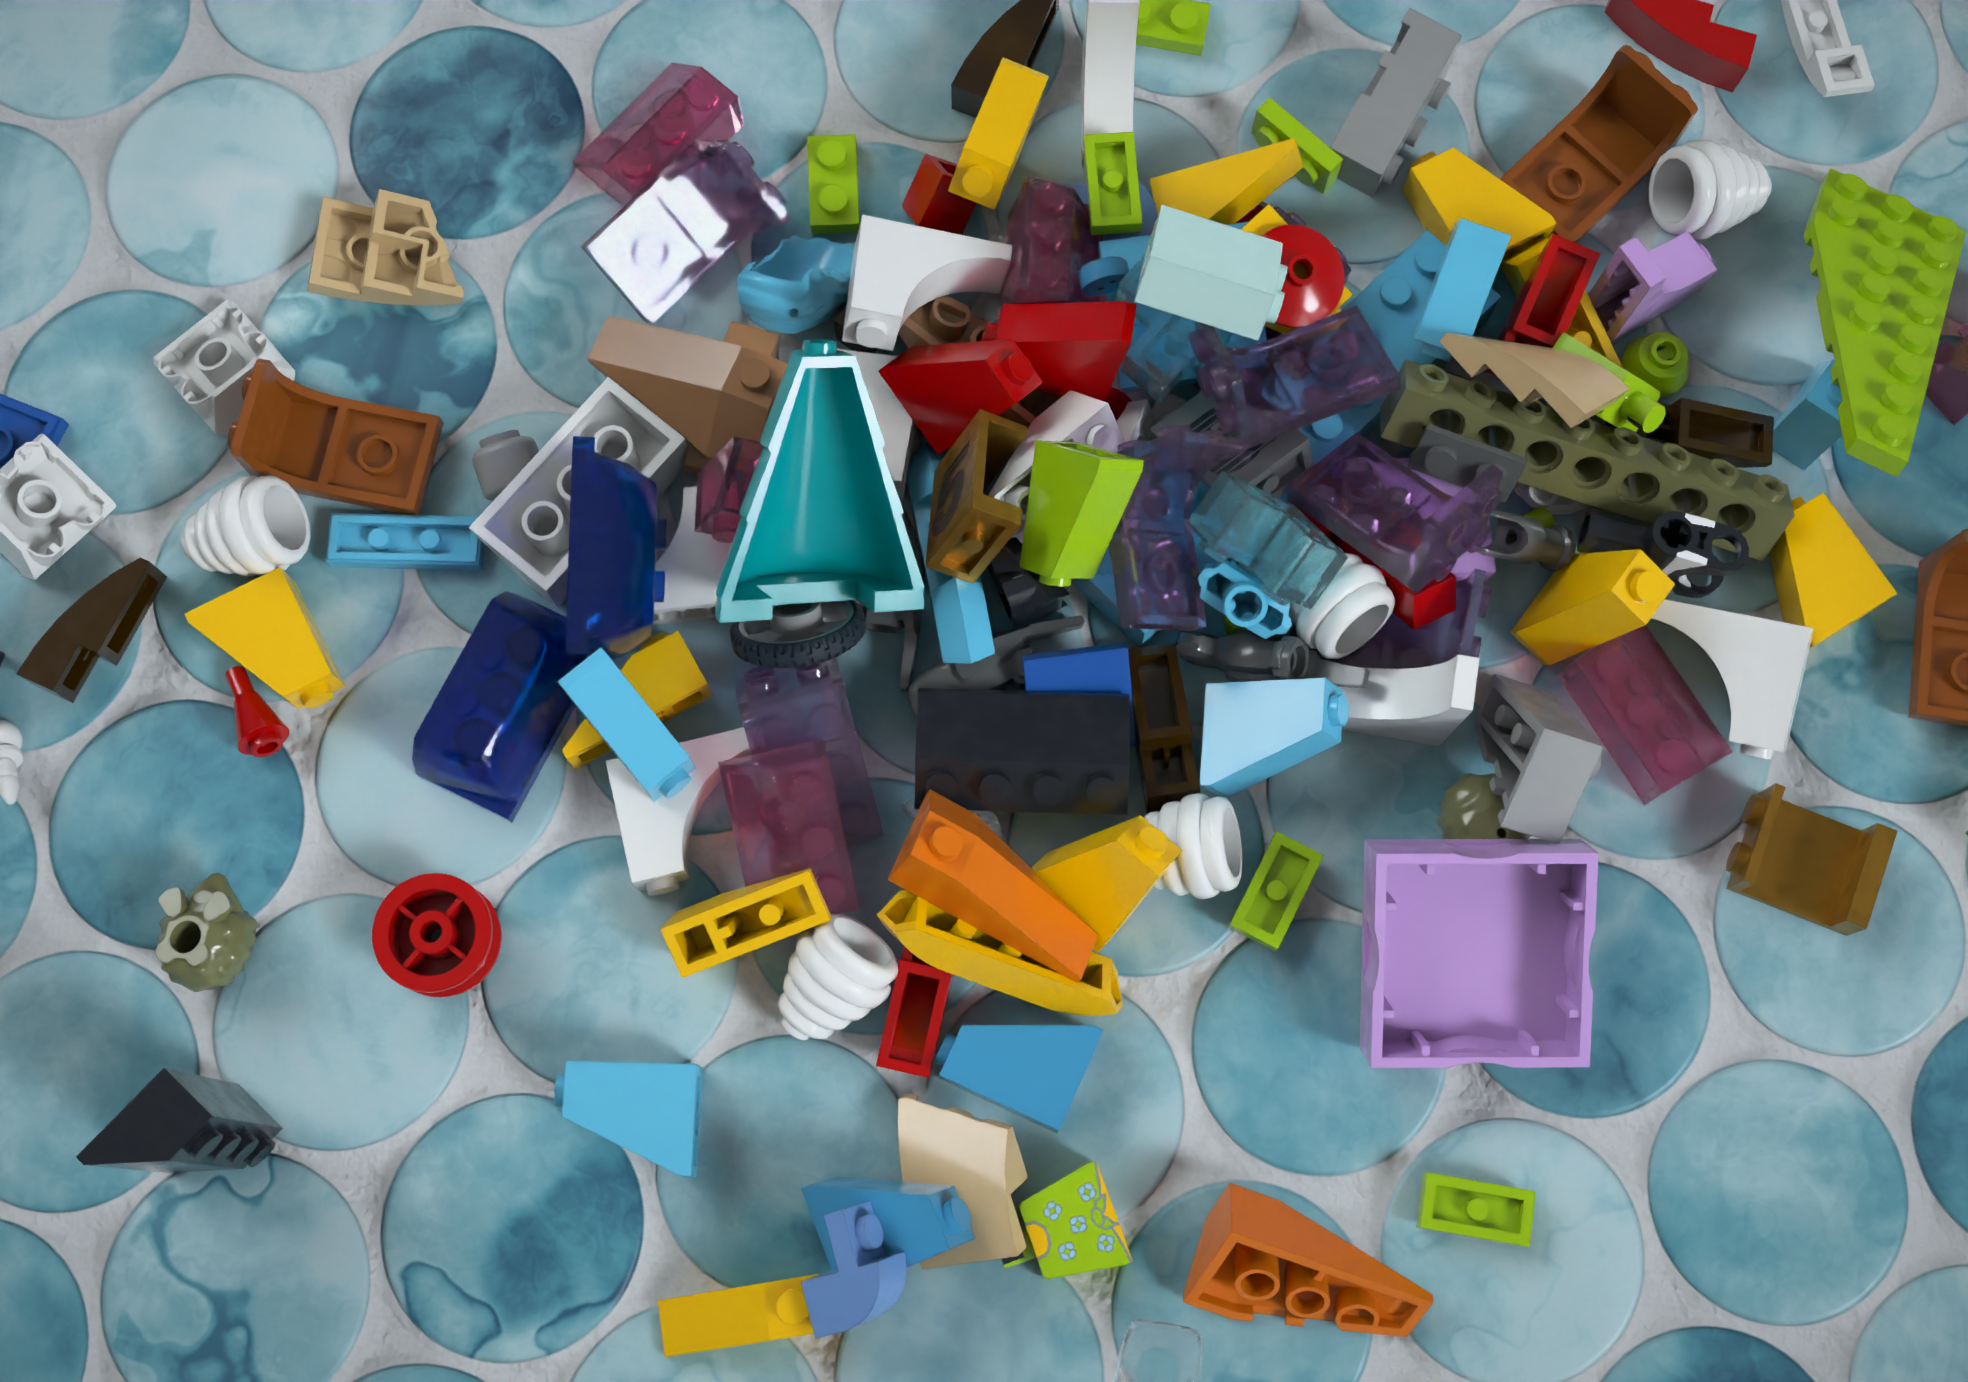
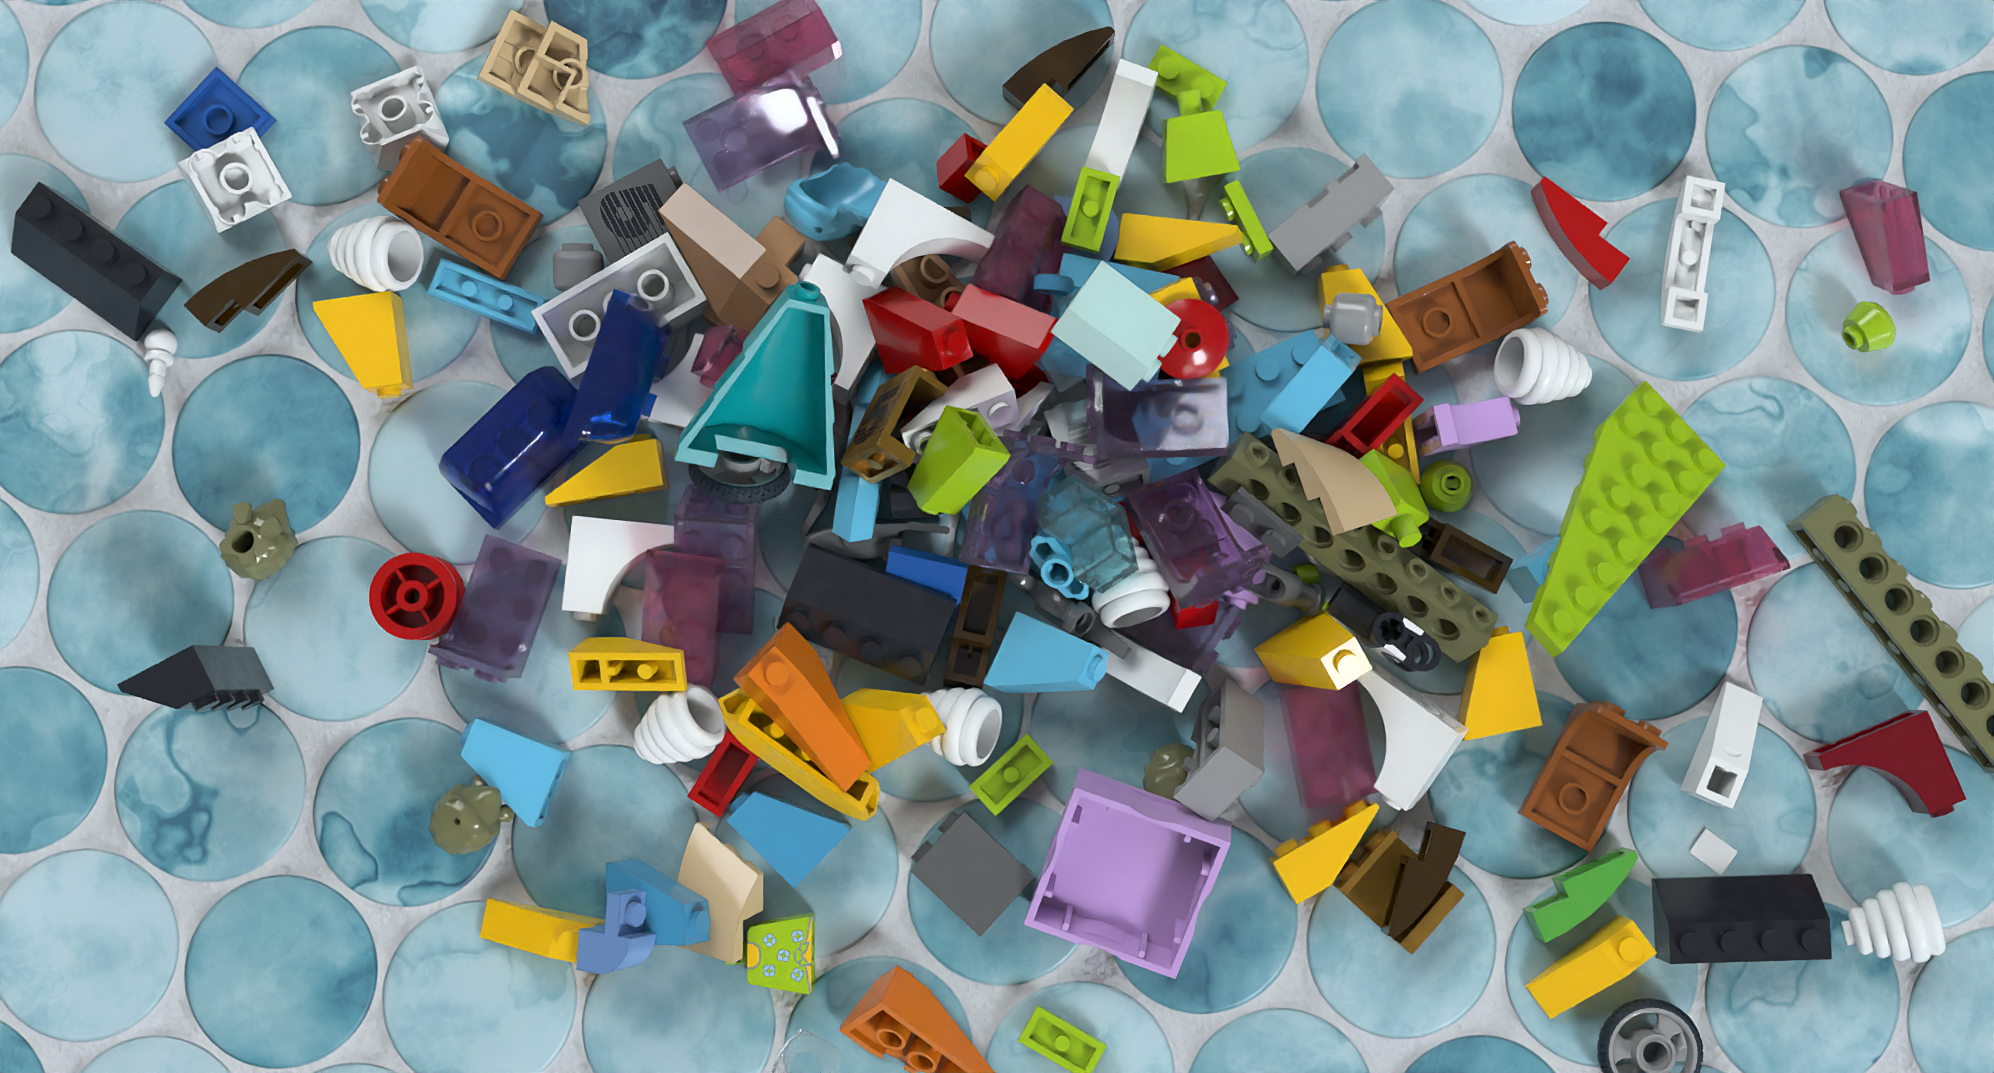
camera: 25 degrees right, 10 degrees up
(257, 725) = (341, 397): red cone -> none
(549, 373) = (627, 212): none -> dark grey panel
(550, 915) = (499, 611): none -> clear purple bracket
(599, 1194) = (468, 817): none -> olive animal
(628, 725) = (592, 503): medium azure slope -> none
(833, 184) = (891, 128): lime plate -> none
(1202, 76) = (1196, 142): none -> lime torso
(1275, 1029) = (970, 871): none -> dark grey panel
(1474, 195) = (1353, 318): none -> light grey head
(1700, 853) = (1317, 859): none -> yellow slope
(1833, 830) = (1421, 878): none -> dark brown slope

